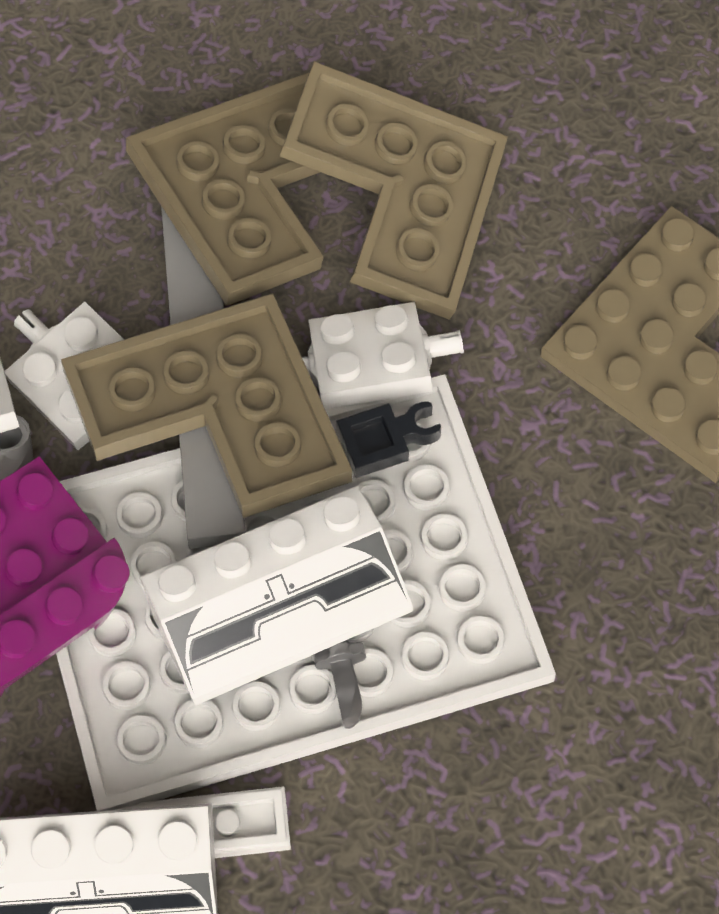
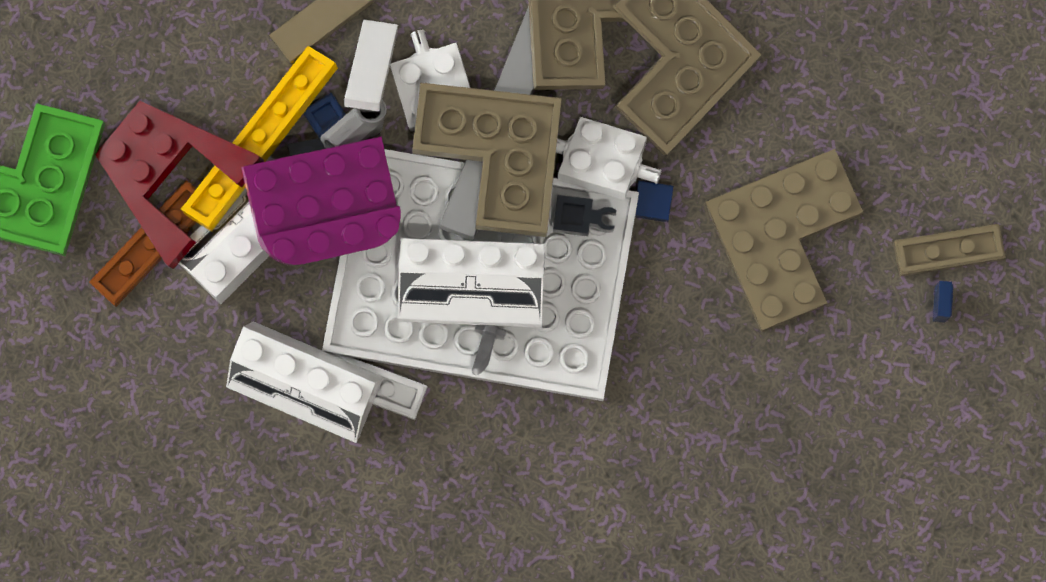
camera: 30 degrees right, 15 degrees up
(472, 380) = (654, 201): none -> dark blue tile

